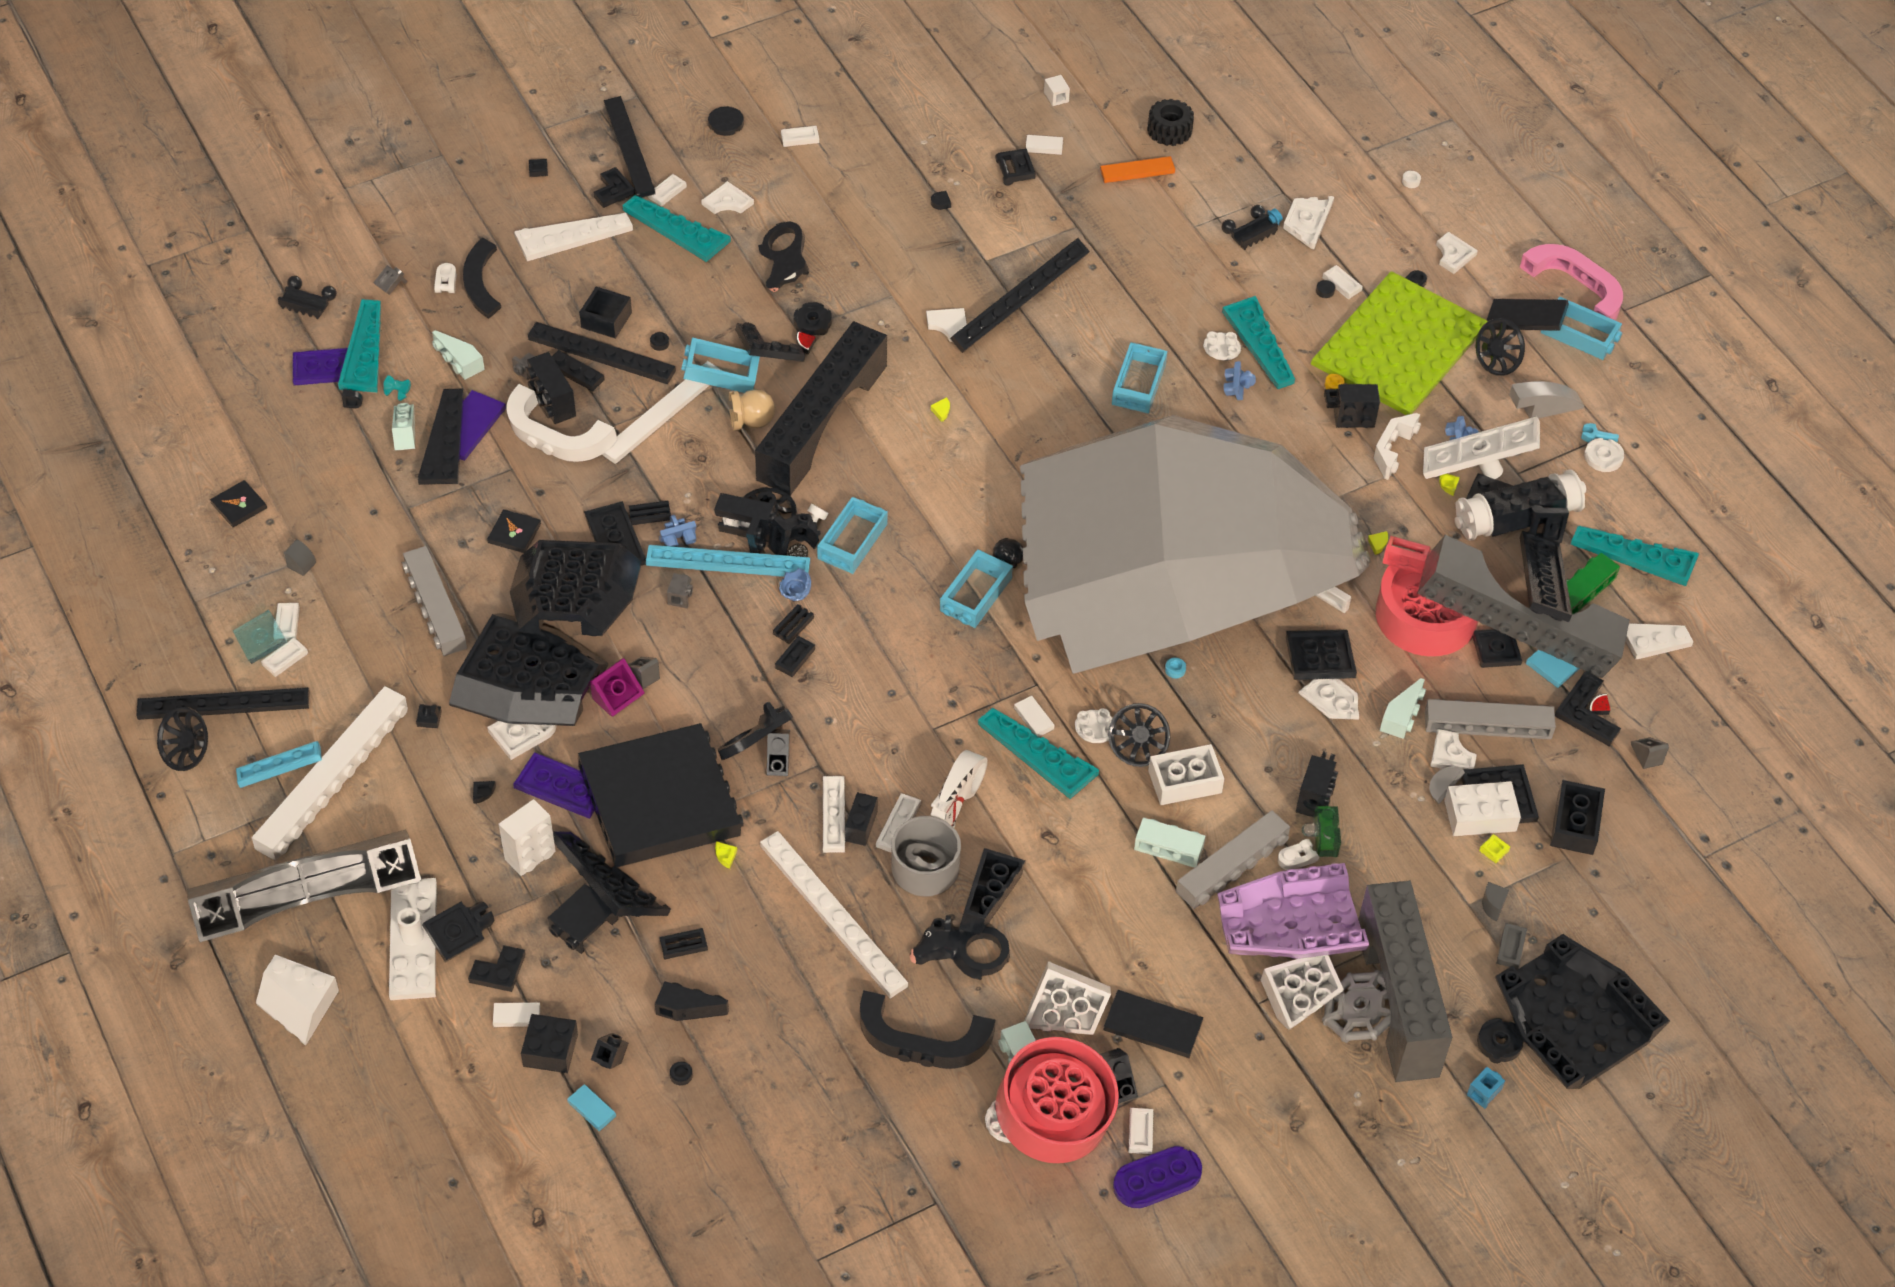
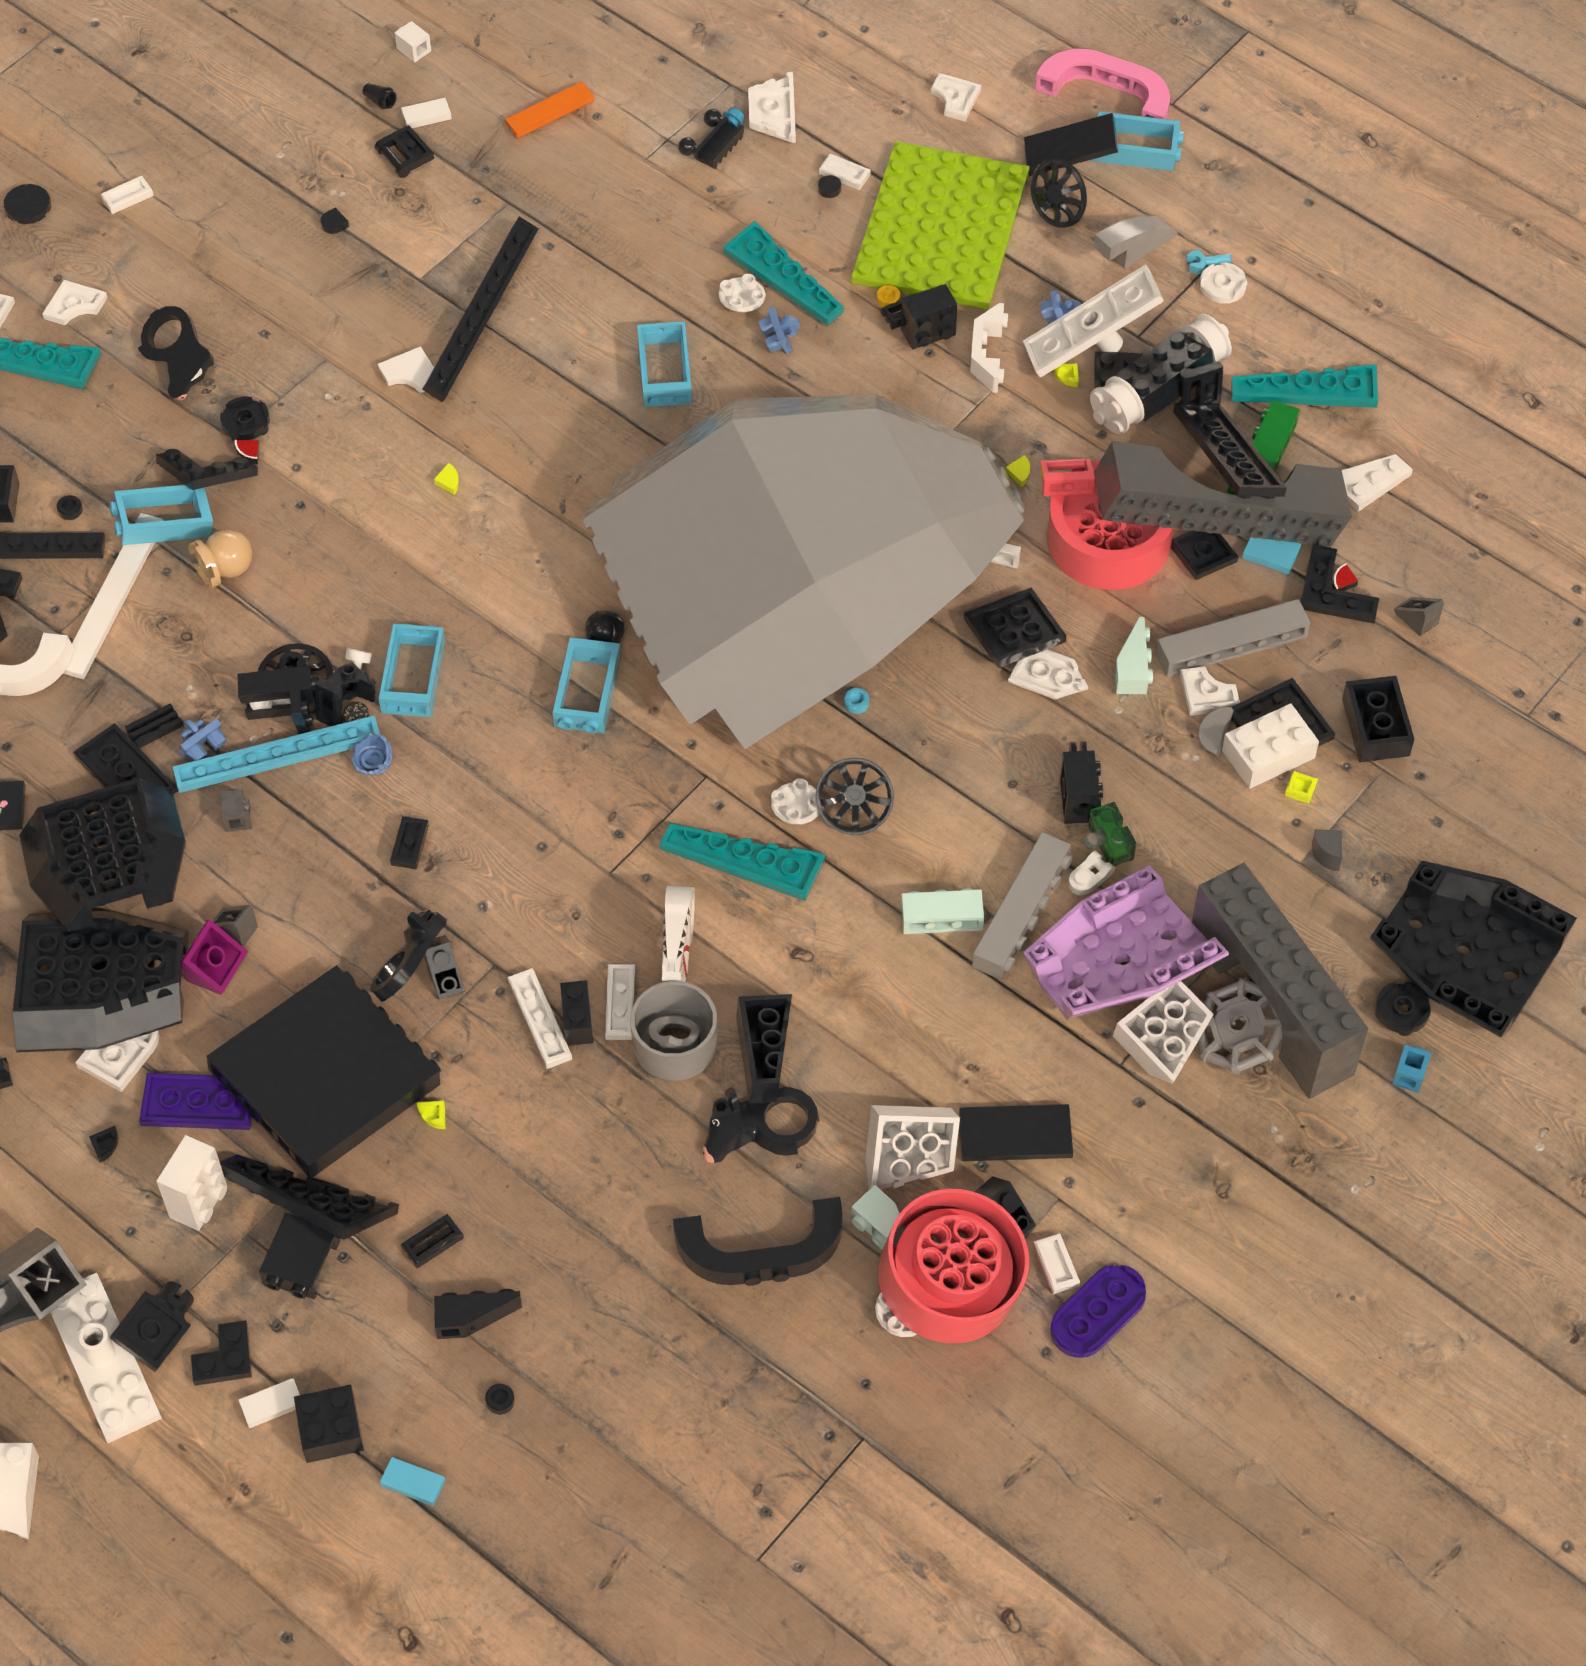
camera: 20 degrees left, 5 degrees up
(609, 1051) = (406, 1405): black brick -> none
(790, 445) = (294, 574): black arch -> none
(791, 621) = (395, 785): black tile -> none
(834, 914) = (593, 1139): white plate -> none
(1015, 121) = (380, 95): none -> black cone
(1034, 716) = (720, 816): white tile -> none
(1170, 122) = (565, 39): black tyre -> none
(1186, 774) = (927, 824): white brick -> none
(1411, 179) = (869, 22): white tile -> none
(1417, 277) = (928, 139): black tile -> none
(1511, 945) = (1367, 893): dark grey tile -> none

